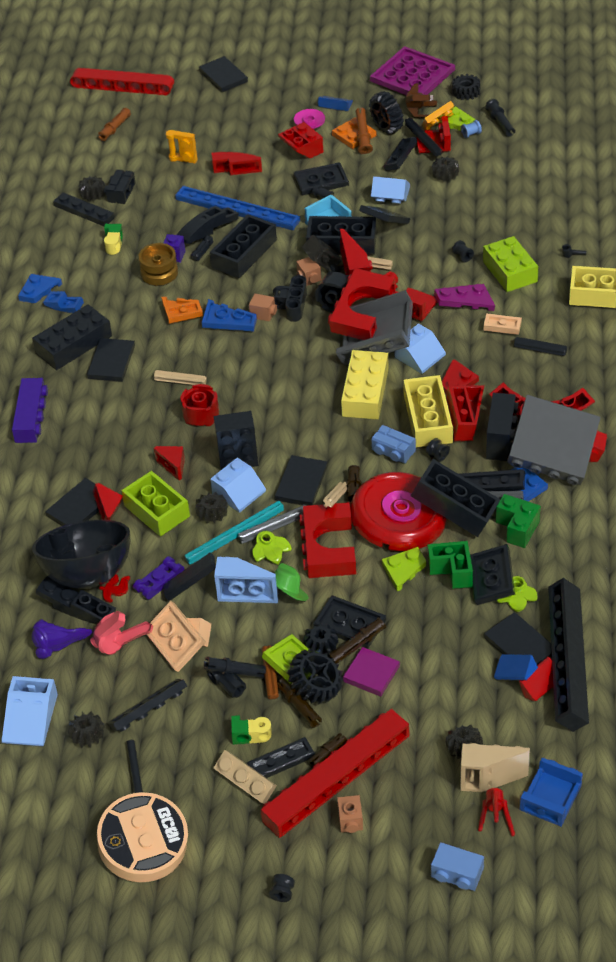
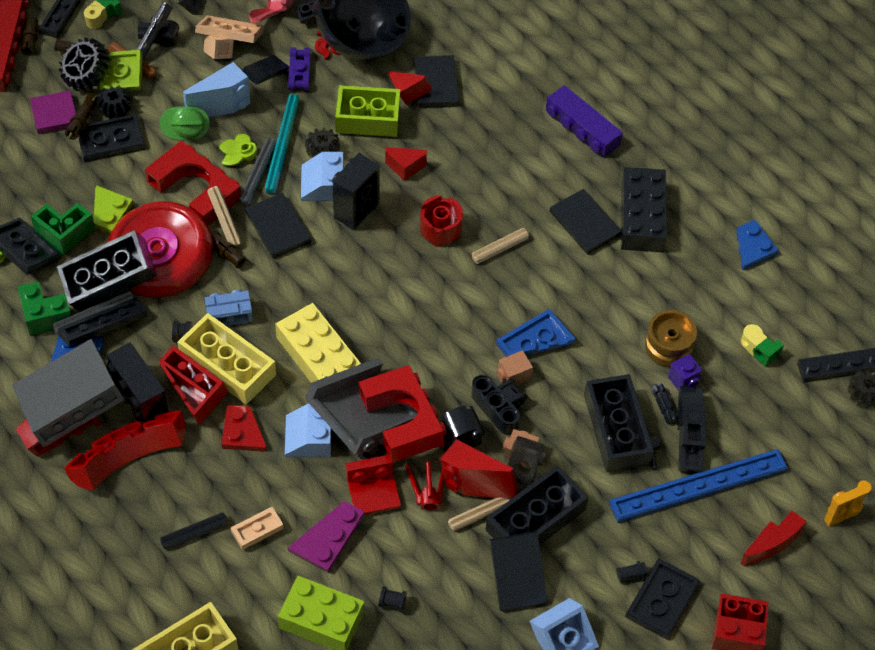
camera: 130 degrees right, 10 degrees up
(59, 301) = (709, 246): blue slope -> none
(120, 186) = (843, 413): black brick -> none
(181, 309) = (590, 314): orange wing -> none
(327, 207) = (589, 547): medium azure panel -> none

